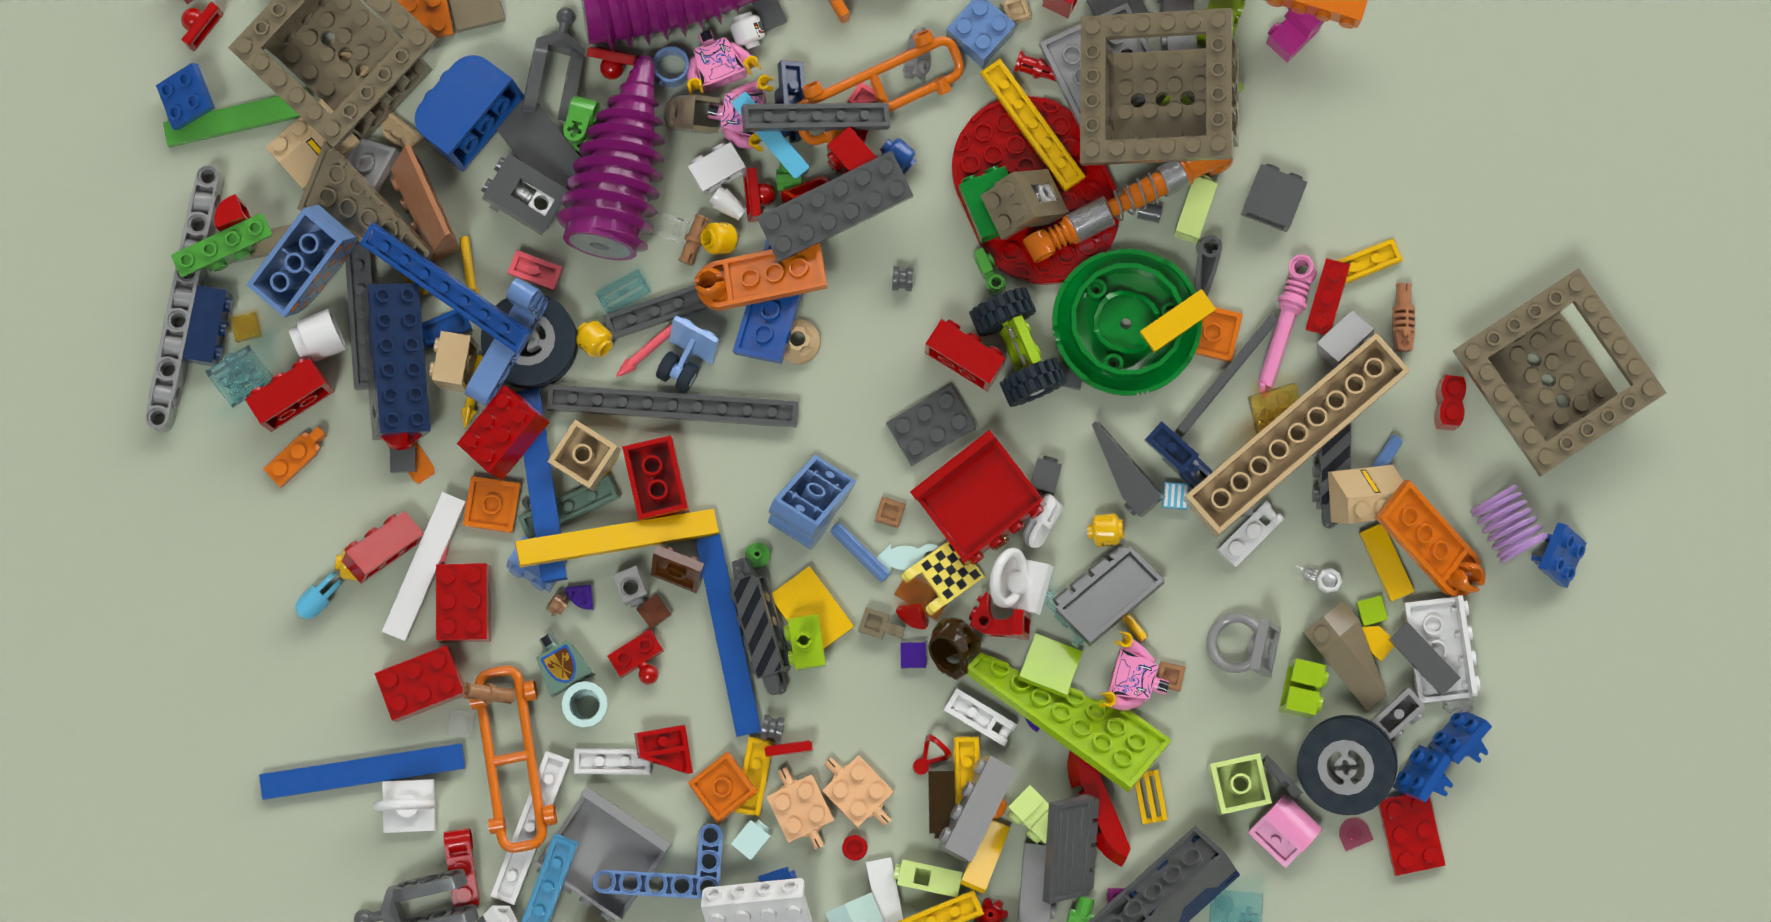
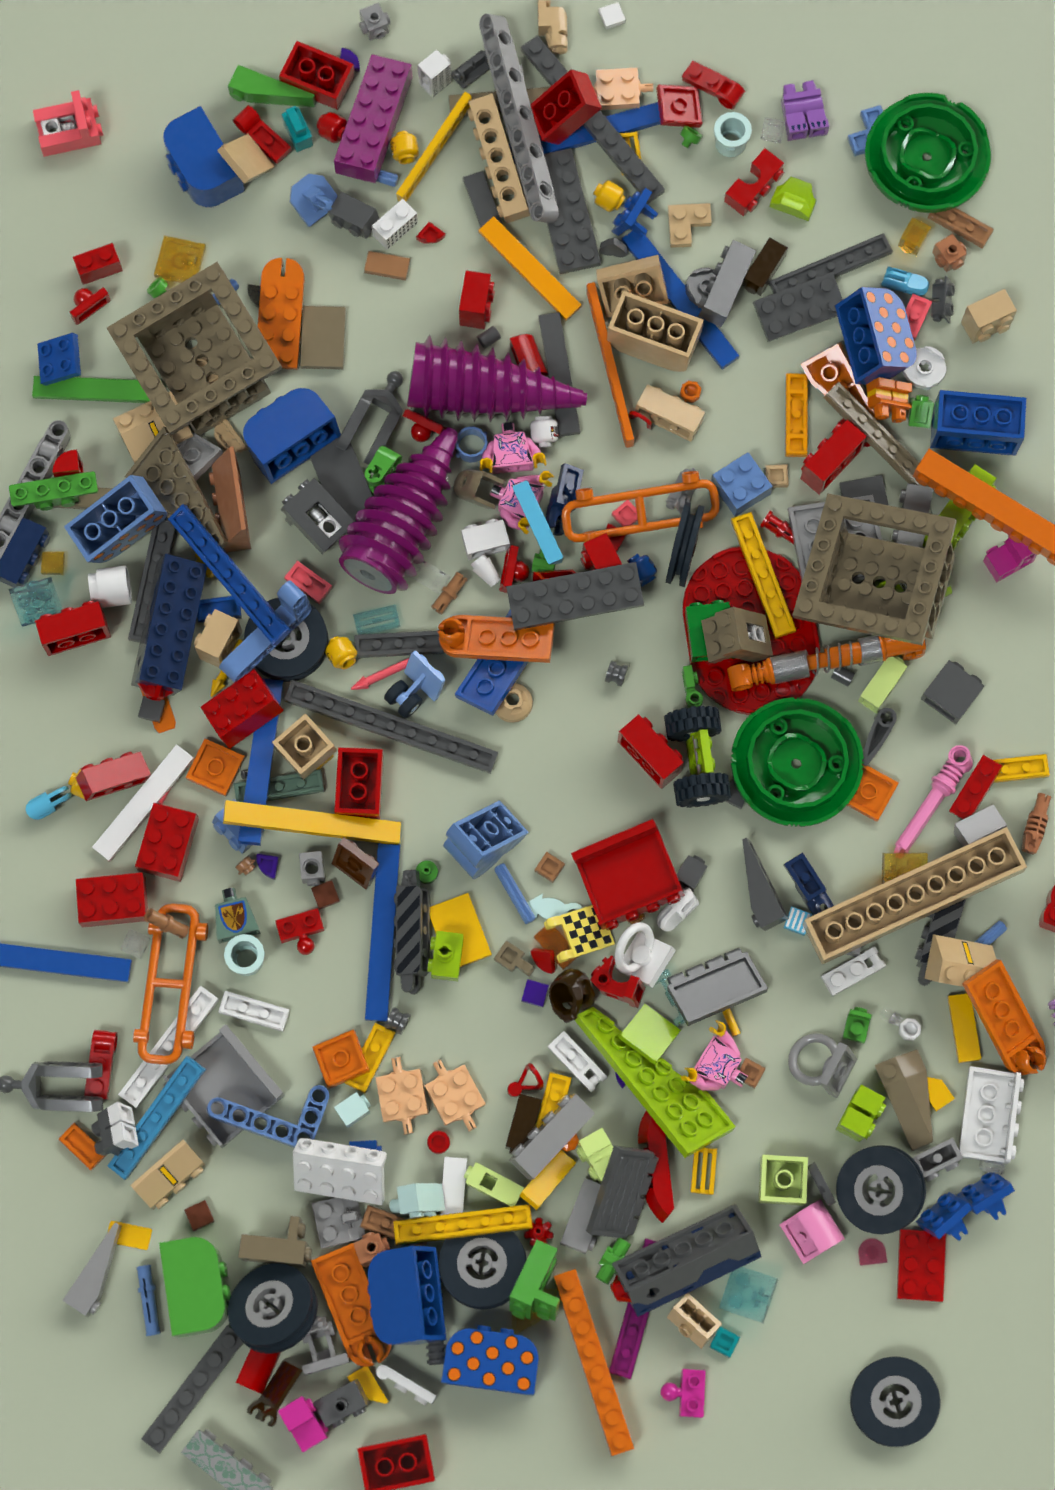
camera: 15 degrees right, 5 degrees down
(295, 457) = (62, 682): orange hinge -> none
(408, 806) = (70, 1000): white tile -> none
(468, 263) = (253, 562): yellow piece -> none
(665, 748) = (301, 1011): red wing -> none
(719, 238) = (470, 597): yellow head -> none
(788, 748) = (406, 1041): red tile -> none
(815, 117) = (580, 517): dark grey plate -> none
(930, 425) = (605, 803): dark grey plate -> none
(939, 115) = (684, 544): none -> black wheel
(1106, 530) = (730, 933): yellow head -> none
(1177, 320) = (840, 771): yellow tile -> none
(1227, 374) = (870, 830): dark grey tile -> none
(1270, 592) = (857, 1025): none -> bright green bracket
(1371, 611) = (940, 1065): lime tile -> none
(1424, 658) = (973, 1118): dark grey tile -> none

